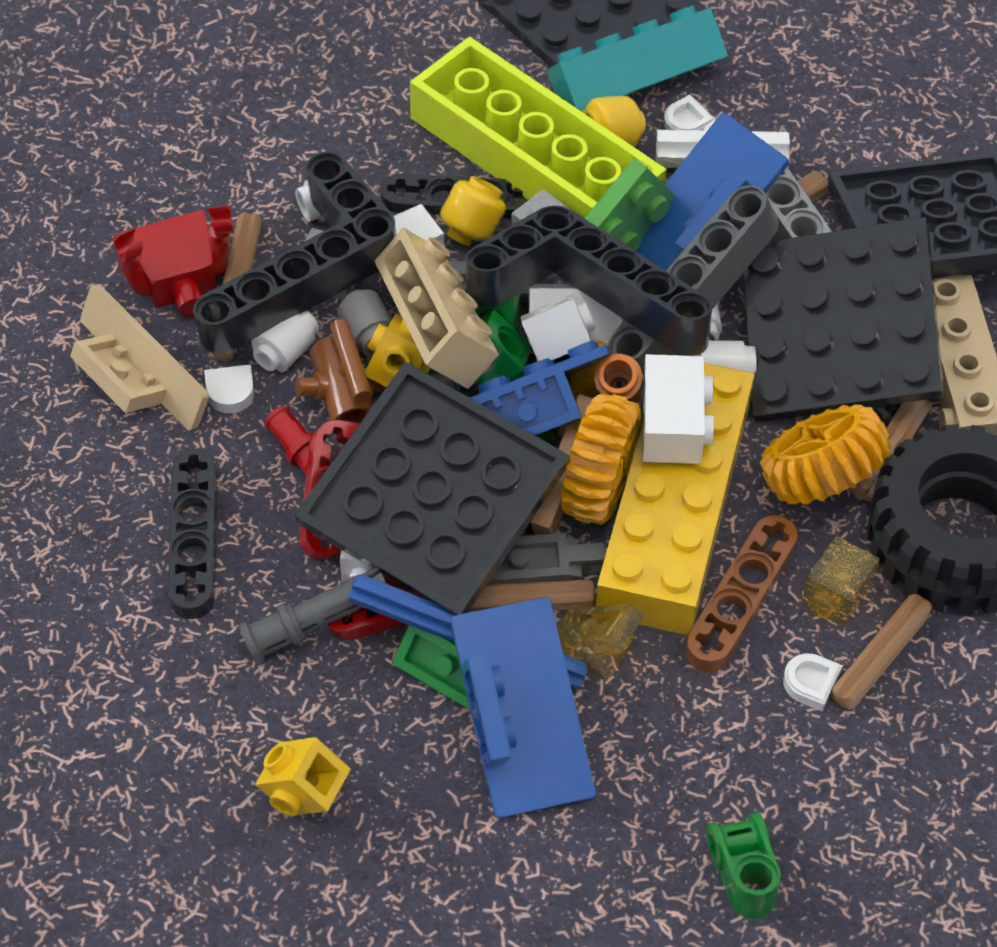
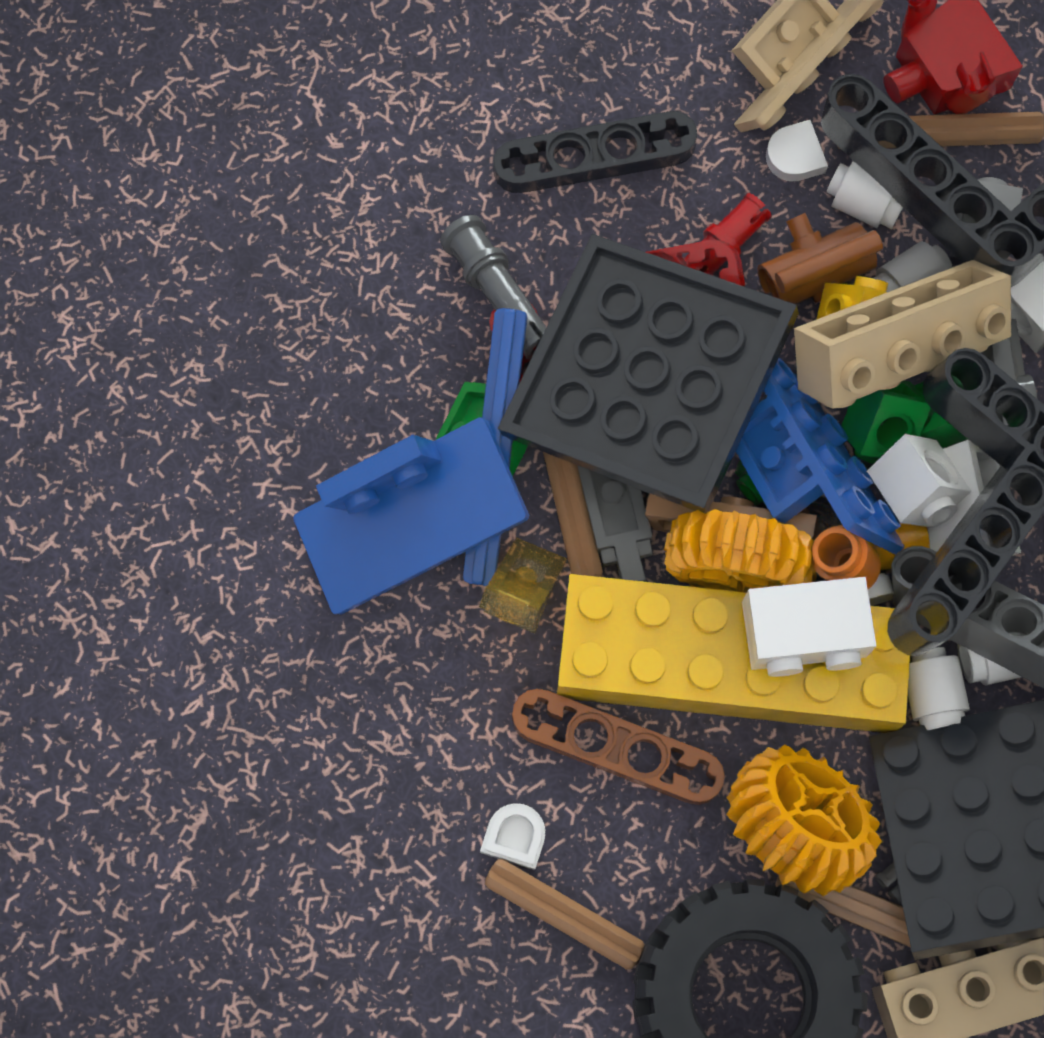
camera: 80 degrees right, 20 degrees up
(302, 777) = (299, 309): yellow brick -> none
(742, 857) = (270, 777): green piece -> none
(839, 581) = (642, 854): clear yellow brick -> none

